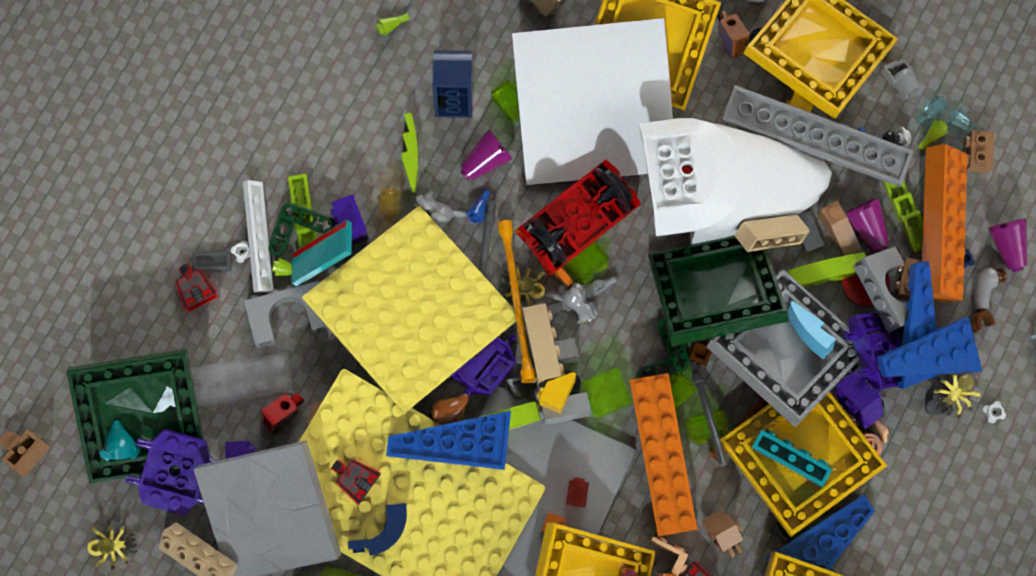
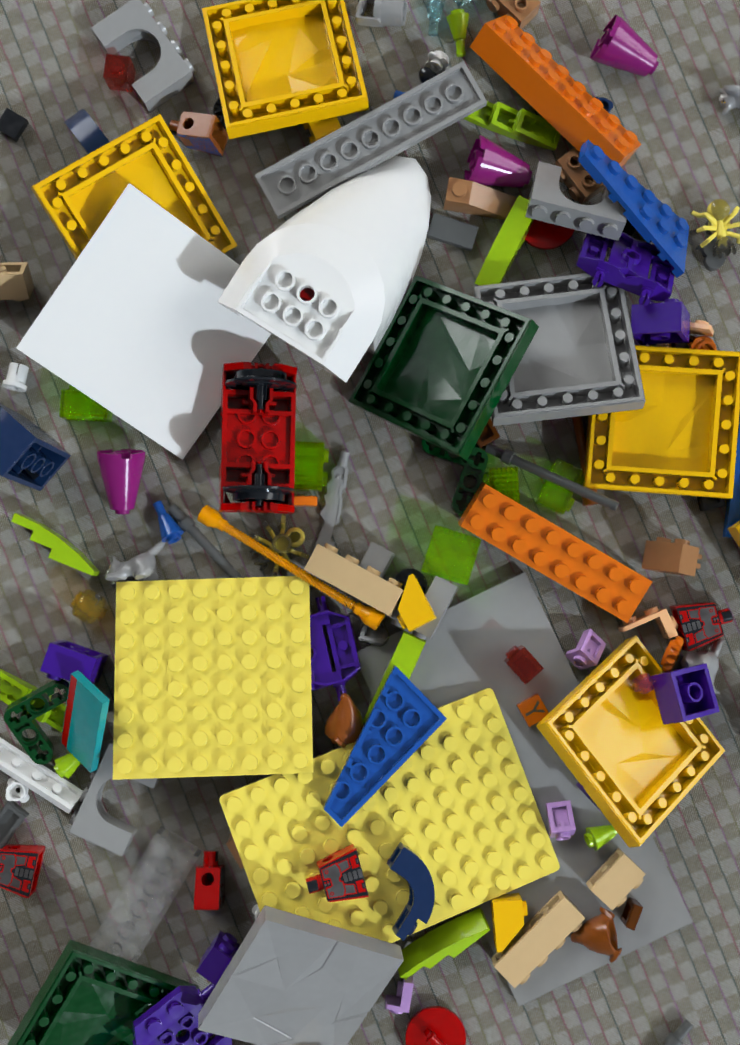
camera: 50 degrees left, 10 degrees up
(492, 48) = (16, 377): none -> white bush
(576, 299) = (335, 508): light grey animal -> none
(619, 528) = (587, 650): none -> lavender bracket
(771, 232) = (430, 266): tan brick -> none
(791, 458) = (664, 437): teal brick -> none
(810, 330) = (560, 313): medium azure slope -> none
(939, 352) = (677, 208): blue wing -> none
(983, 286) = (648, 121): piece -> none

